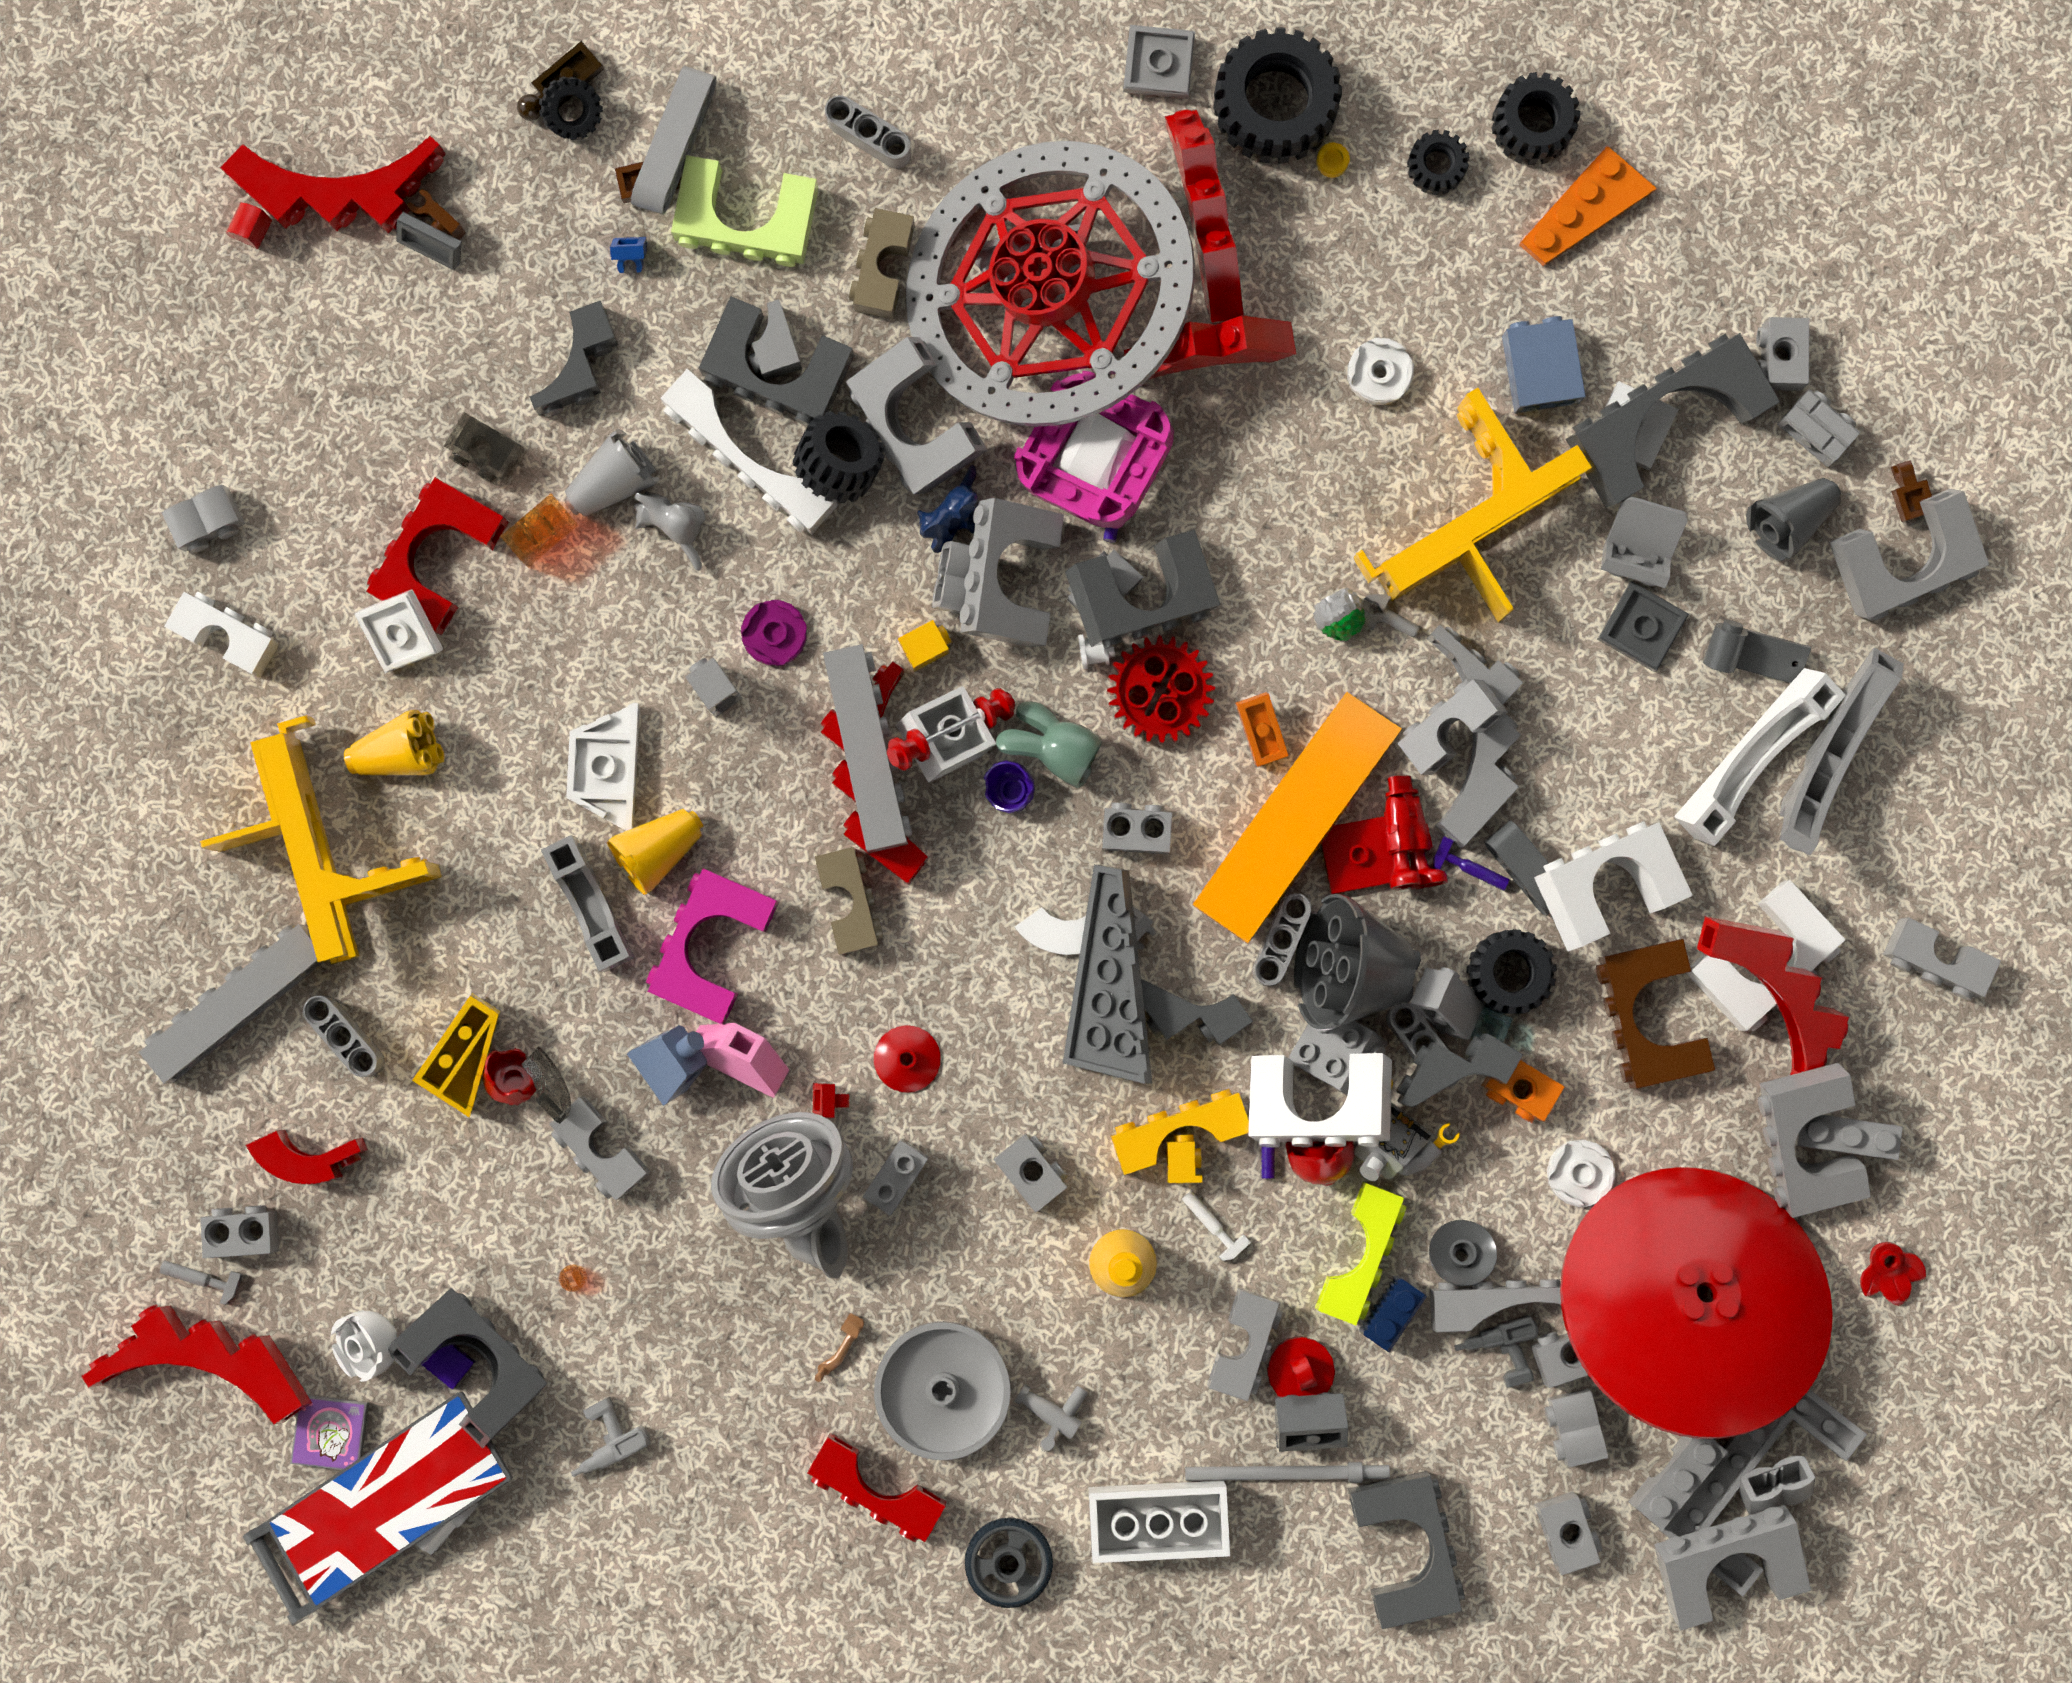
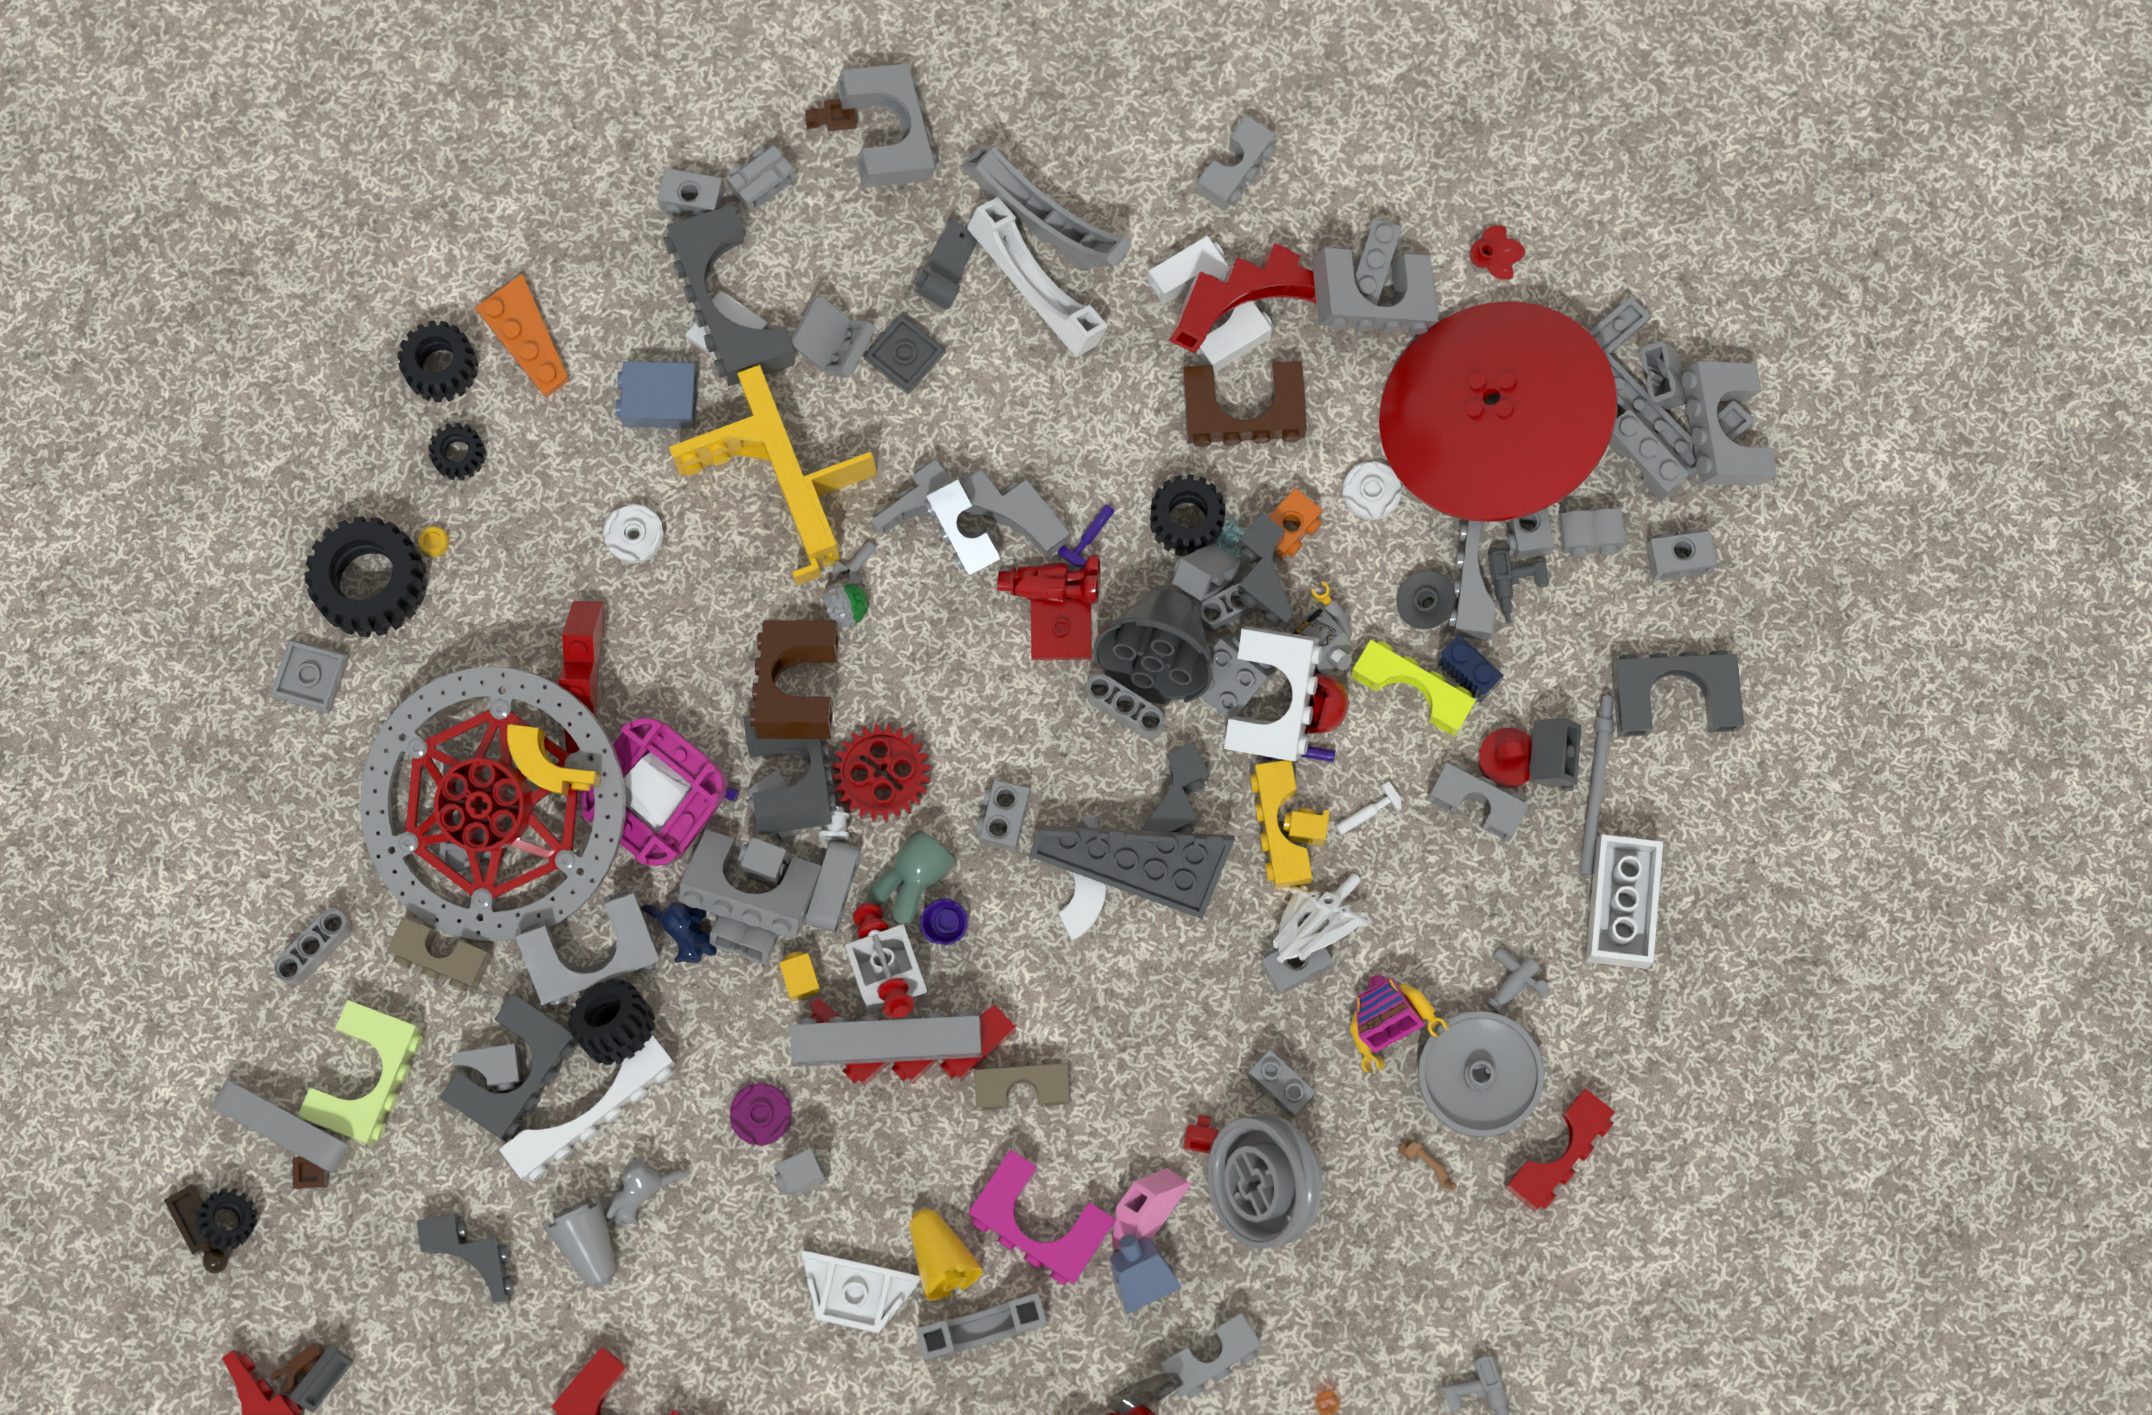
camera: 80 degrees left, 10 degrees down
(470, 436) = (515, 1363): clear smoke brick -> none
(539, 530) = (621, 1316): clear orange brick -> none
(628, 249) = (372, 1188): blue tile -> none
(823, 1247) = (1336, 1164): light grey piece -> none
(925, 1058) = (1175, 1075): red dish -> none
(978, 1568) = (1666, 1028): dark grey wheel -> none
(988, 1281) = (1387, 1015): none -> torso
(1028, 662) = (833, 886): none -> light grey beam
(1037, 583) = (764, 862): none -> light grey brick
(1050, 1175) = (1304, 940): none -> white bar
(1089, 318) = (531, 758): none -> yellow arch
(1122, 1263) = (1390, 897): yellow cone -> none
(1208, 214) = (456, 650): red arch -> none
(1262, 729) = (934, 690): orange plate -> none
(1280, 555) = (781, 646): none -> reddish brown arch
(1296, 818) = (1019, 674): light orange slope -> none
(1519, 860) = (1098, 486): dark grey beam -> none
(1569, 886) = (1123, 450): white arch -> none
(1792, 517) = (835, 213): dark grey cone -> none

